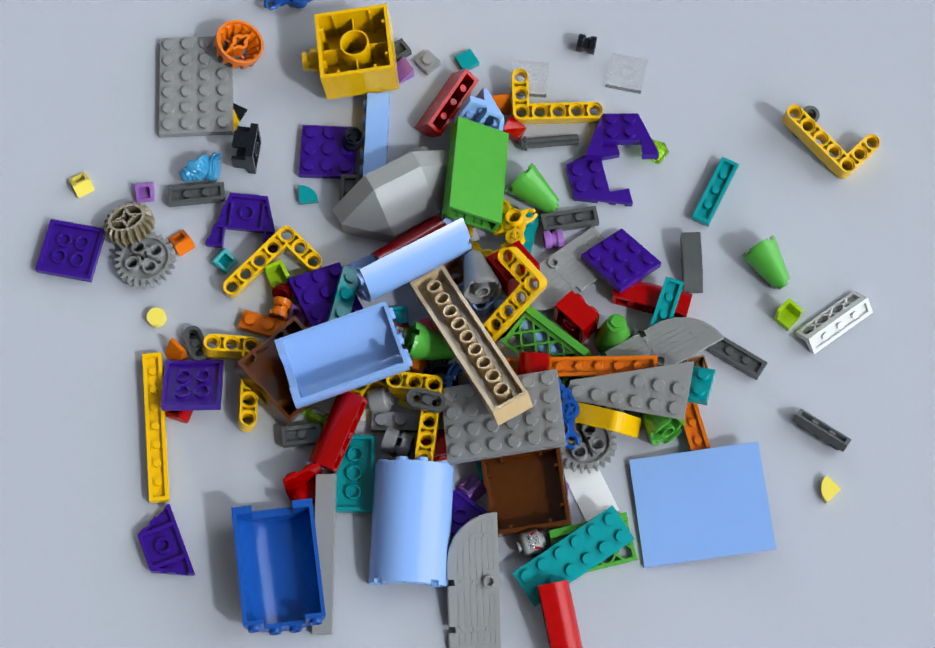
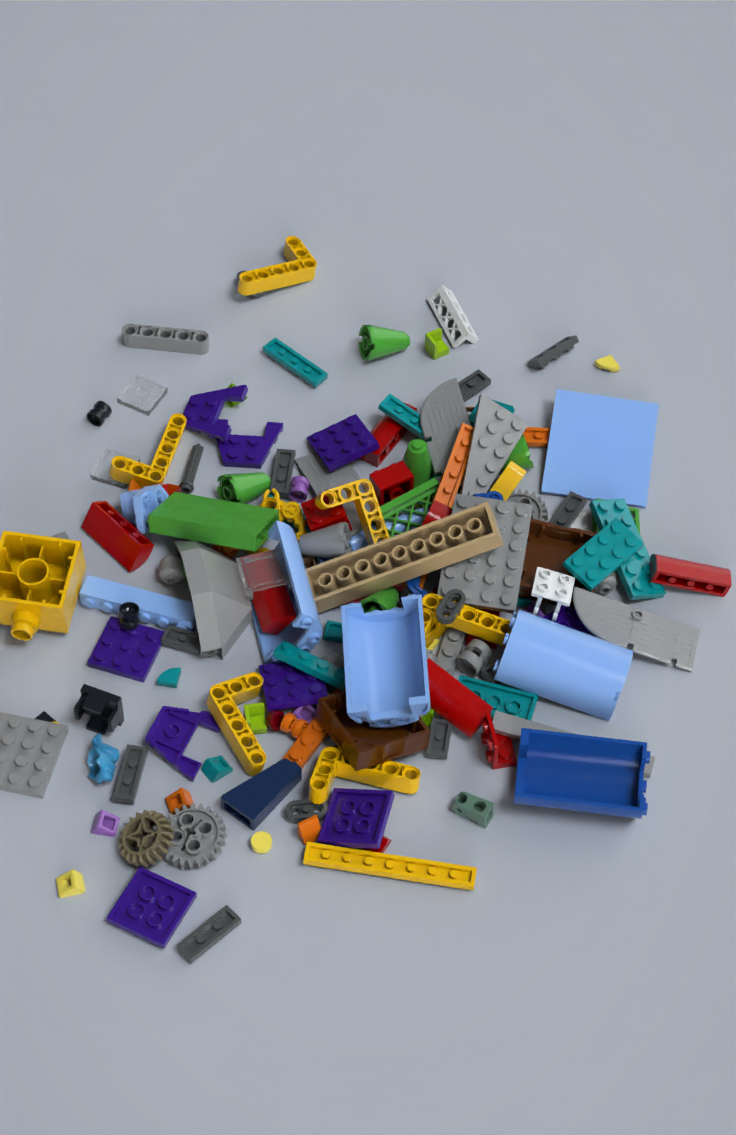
camera: 75 degrees left, 15 degrees down
(56, 301) = (209, 934): none -> dark grey plate
(165, 546) = (525, 883): dark purple wing -> none
(202, 303) = (262, 793): none -> dark blue slope
(231, 483) = (474, 808): none -> sand green leg
(419, 223) = (262, 572): none -> clear panel
(467, 60) = (72, 511): teal tile -> none
(488, 491) = (554, 587): none -> white plate
(545, 530) = (603, 554): none -> teal plate
(601, 489) = (569, 510): none -> dark grey plate
(691, 262) = (358, 394): dark grey slope -> none
(701, 77) = (165, 339): none -> light grey beam

